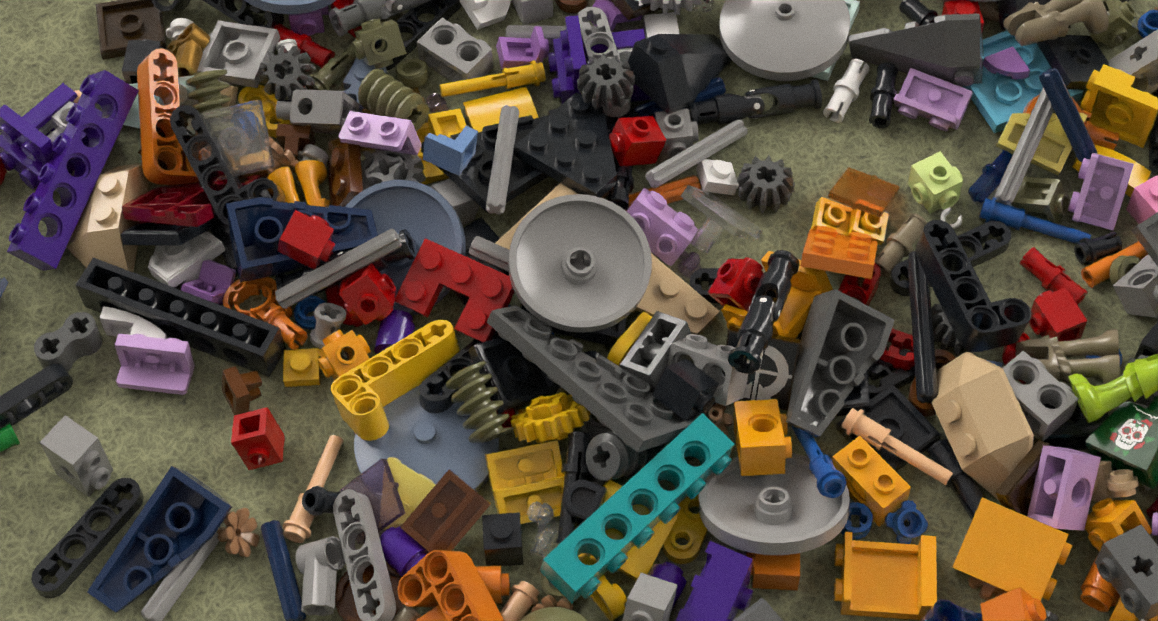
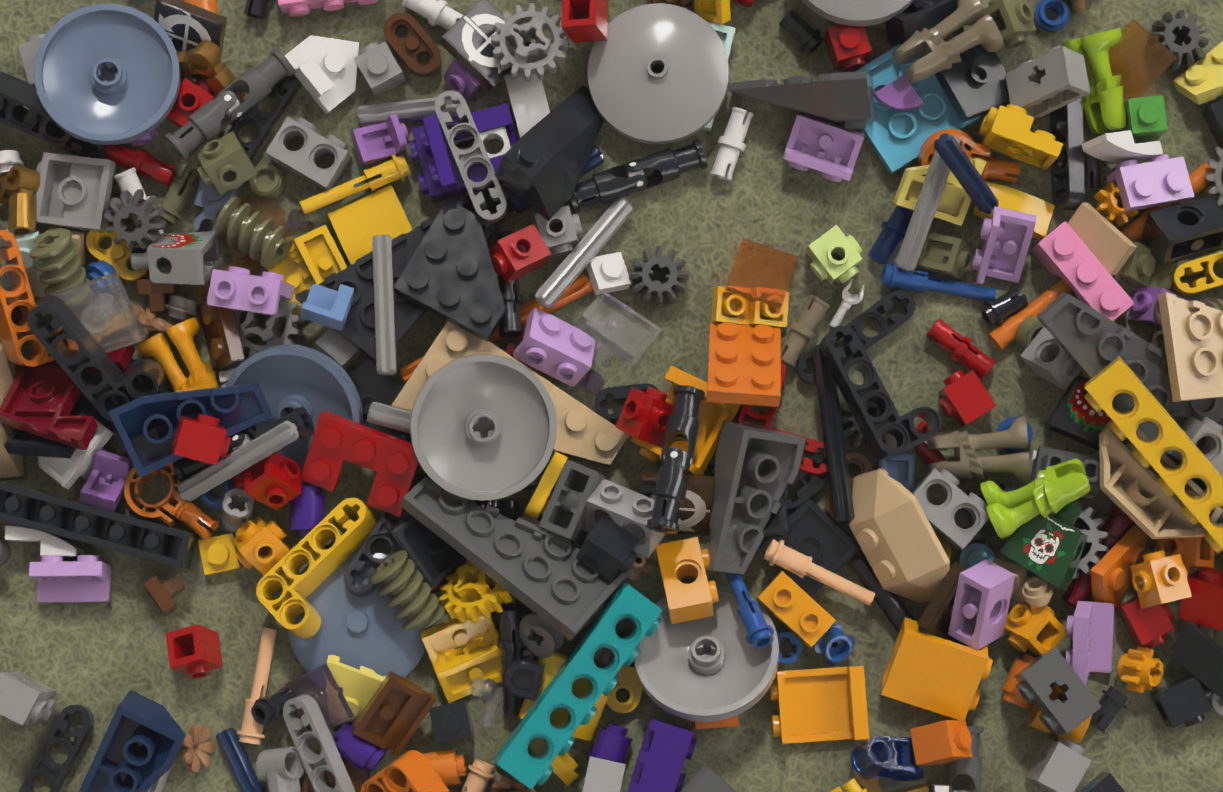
camera: 10 degrees left, 25 degrees up
(606, 82) = (487, 188): dark grey gear -> none
(883, 95) = (771, 145): black pin -> none

